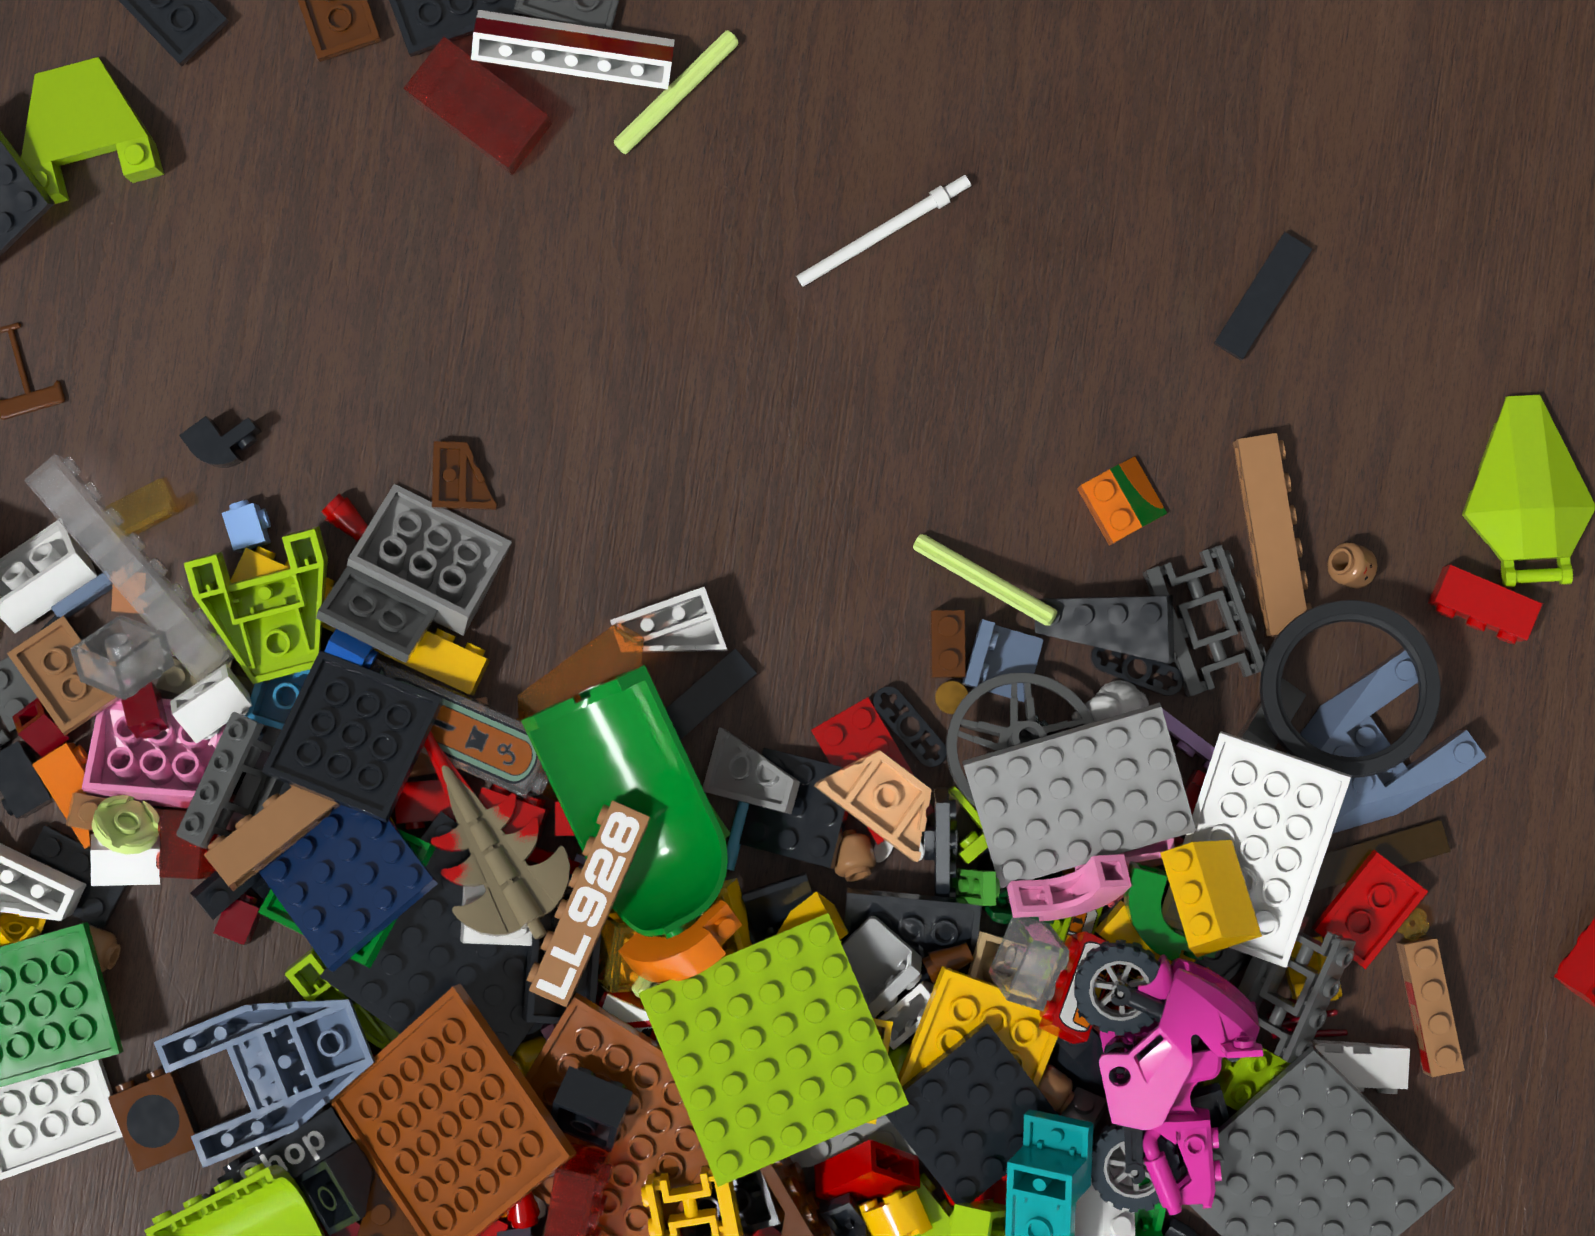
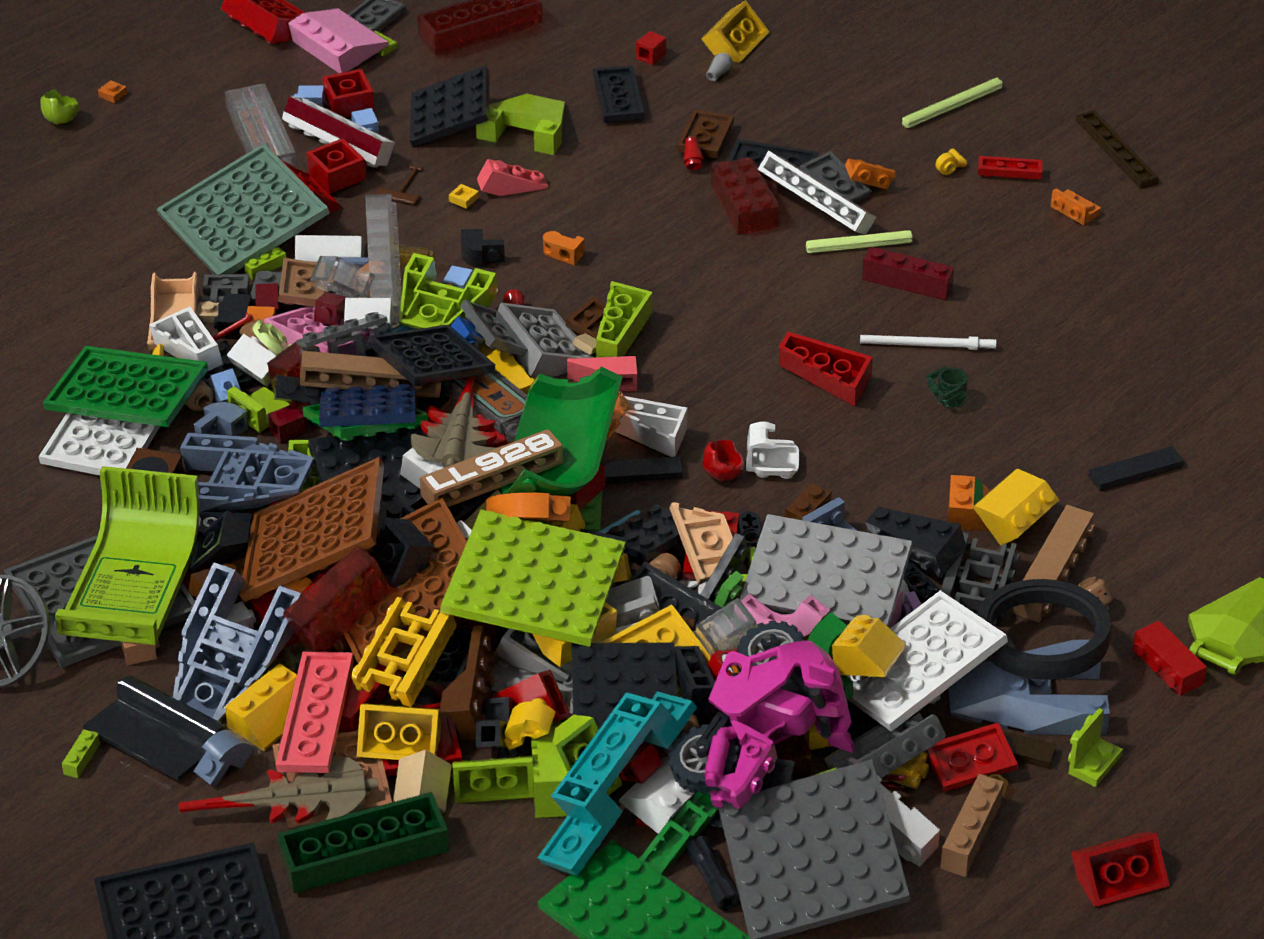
camera: 35 degrees right, 45 degrees down
(55, 792) = (249, 317): none -> red axle
(119, 350) = (463, 196): none -> yellow plate
(119, 918) = (221, 383): none -> light blue brick
(153, 966) = (222, 419): none -> sand blue brick
(156, 276) = (506, 179): none -> coral slope
(178, 917) = (256, 405): none -> lime bracket
(321, 366) = (563, 247): none -> orange leg
(354, 67) = (692, 156): none -> red cone
(486, 526) = (585, 343): none -> tan tile
(500, 458) = (622, 319): none -> lime wedge
(555, 561) = (623, 366): none -> coral slope
(748, 776) = (633, 502): light grey wing -> none
(783, 123) = (908, 273): none -> dark red brick
(797, 631) = (722, 460): none -> red hair
(812, 376) = (827, 366): none -> red wedge
(844, 576) = (770, 455): none -> white piece
(970, 311) = (951, 386): none -> clear green piece
(985, 579) = (856, 488): yellowish green axle -> none
(1040, 1052) = (694, 678): none -> black slope
(1182, 480) = (1015, 505): none -> yellow slope
(1490, 811) = (1091, 755): none -> lime bracket

